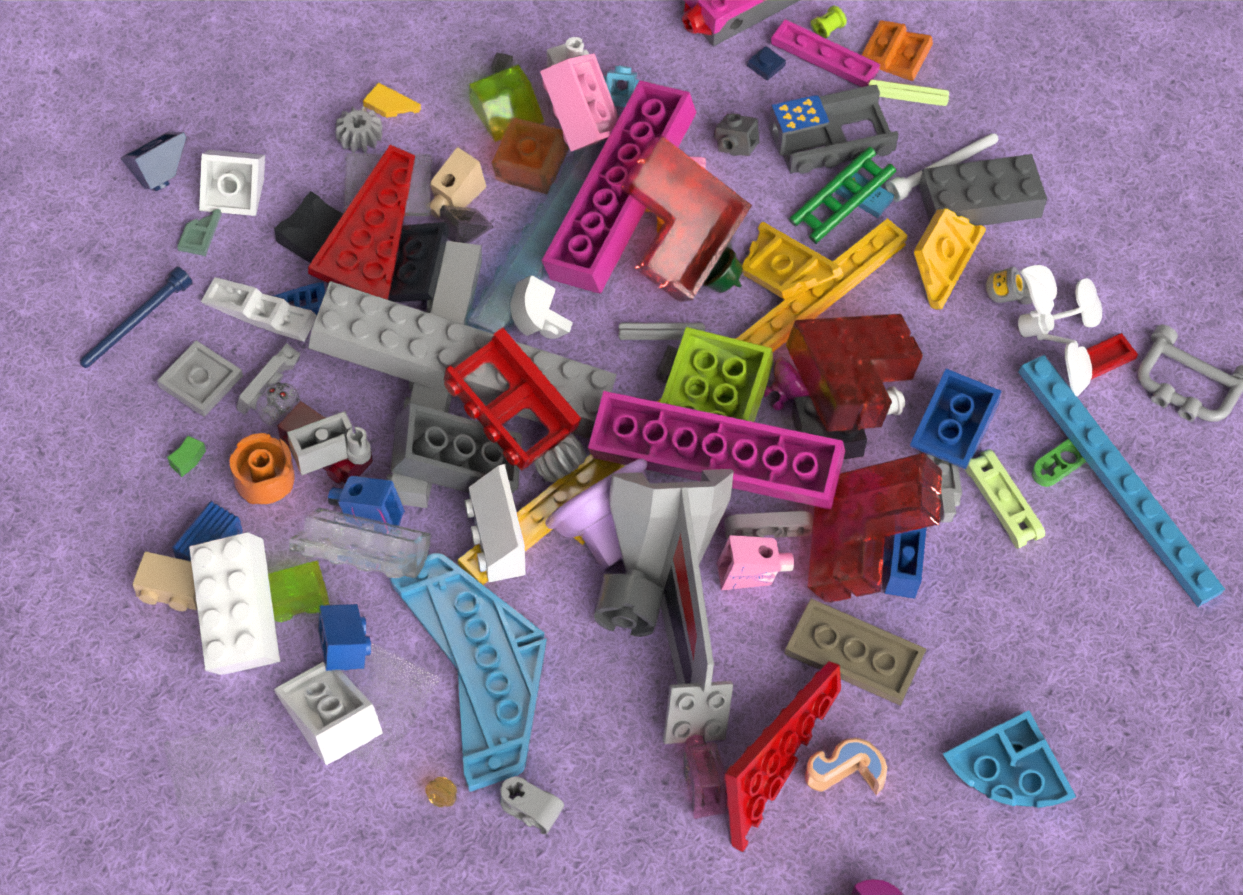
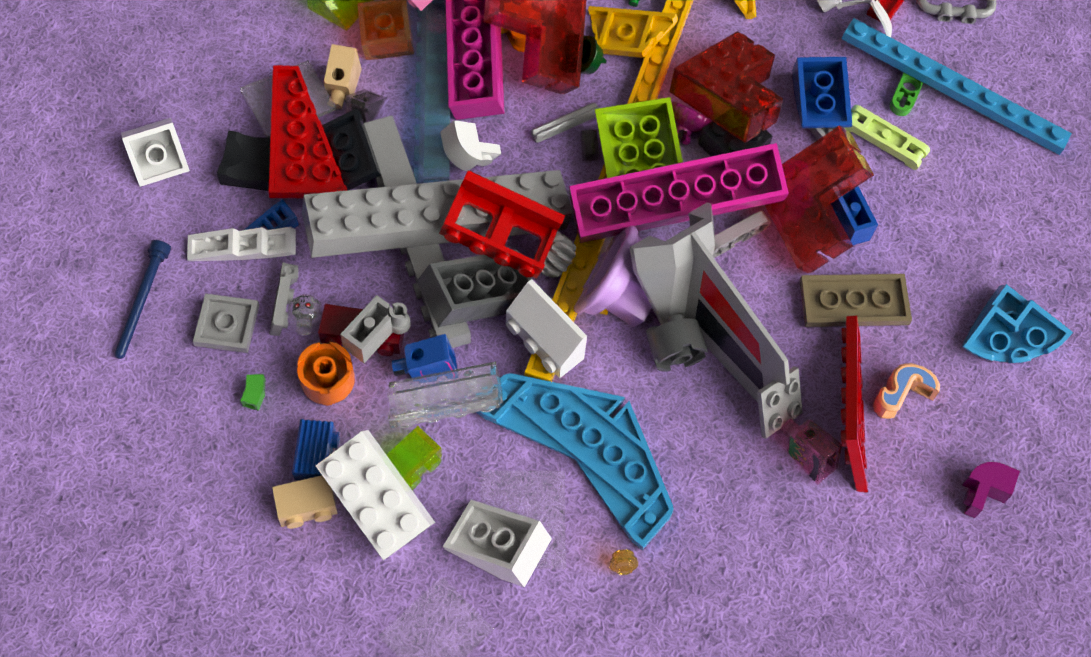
camera: 30 degrees left, 5 degrees up
(156, 160) = (80, 159): slope -> none
(199, 234) = (152, 206): sand green tile -> none
(343, 637) = (475, 478): blue brick -> none
(358, 129) = (234, 65): light grey gear -> none
(389, 102) = (244, 34): yellow tile -> none
(533, 807) = (700, 536): light grey piece -> none
(751, 562) = (748, 265): bright pink torso -> none

